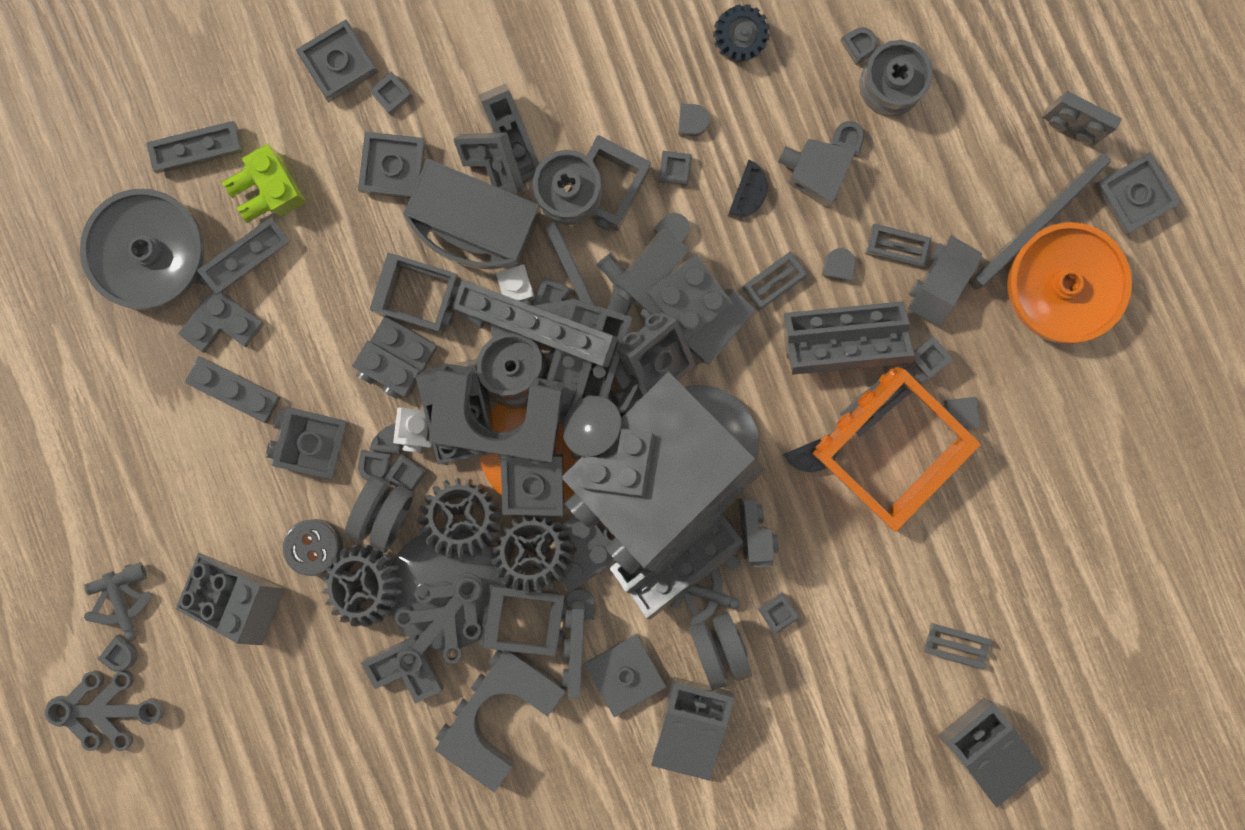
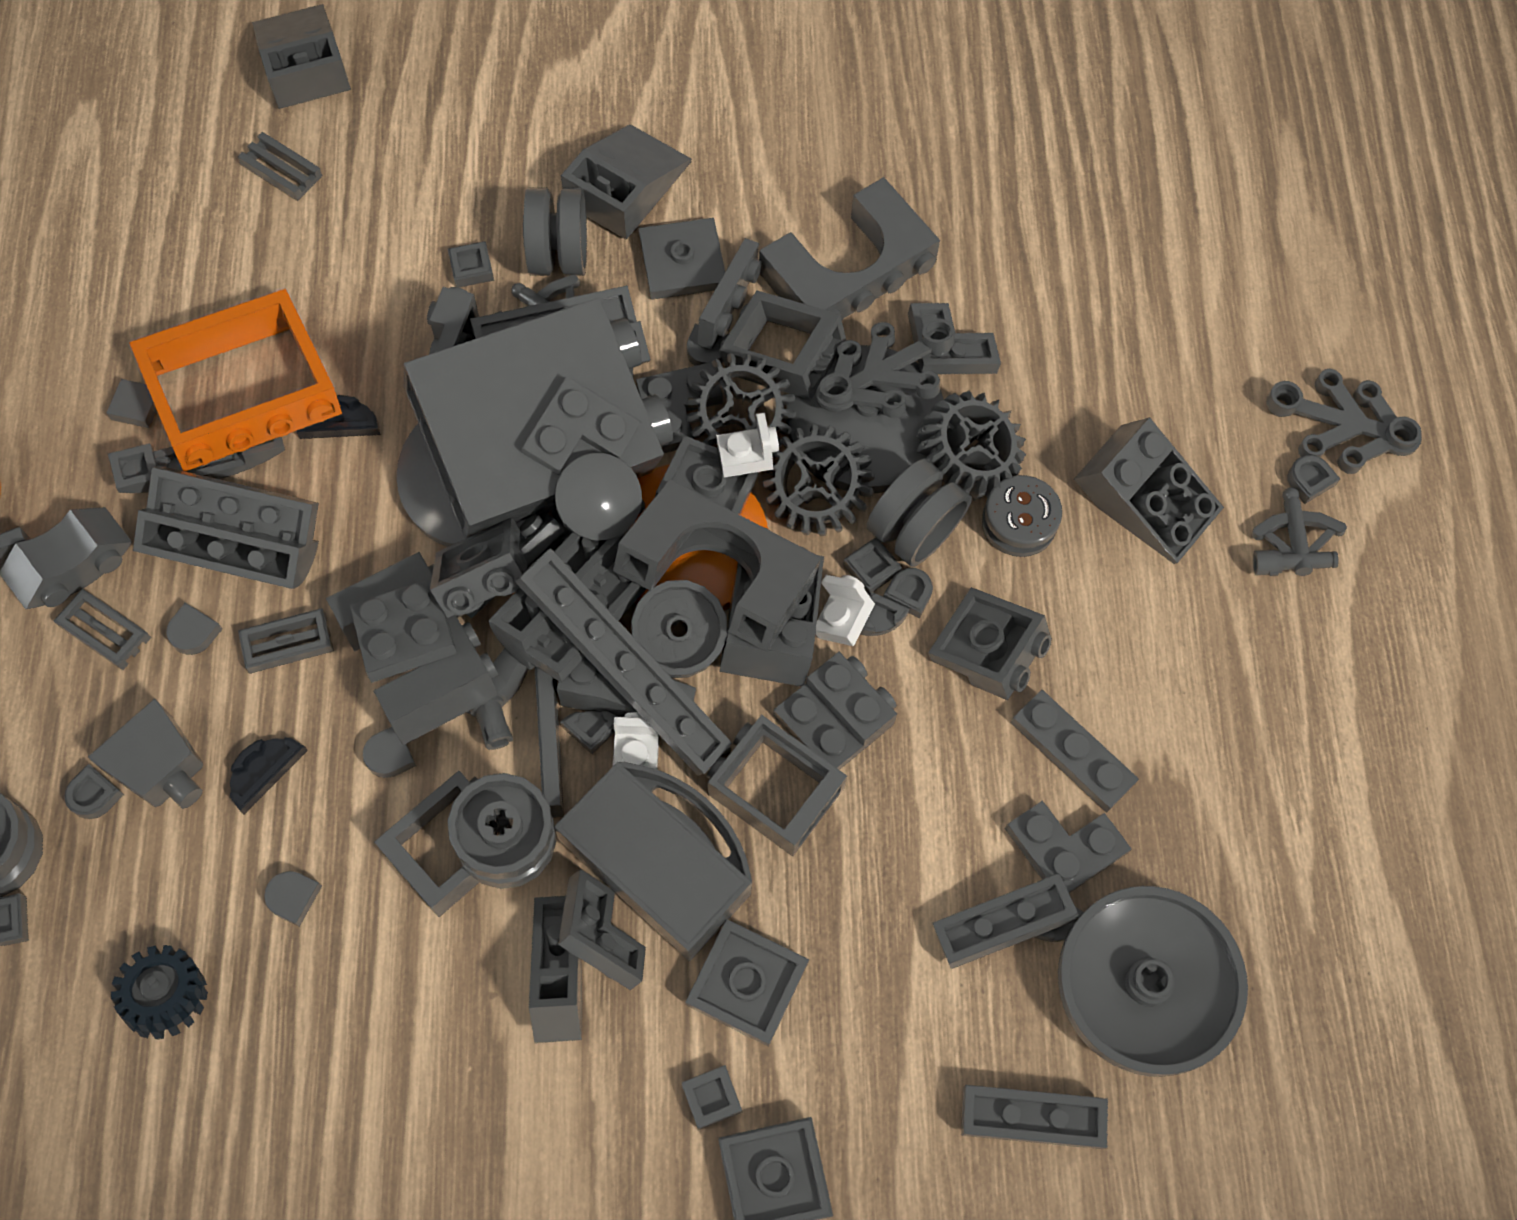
camera: 165 degrees left, 20 degrees down
(270, 175) = (928, 1016): lime brick -> none
(512, 516) = (748, 449): none -> white bracket
(675, 168) = (347, 838): dark grey tile -> none

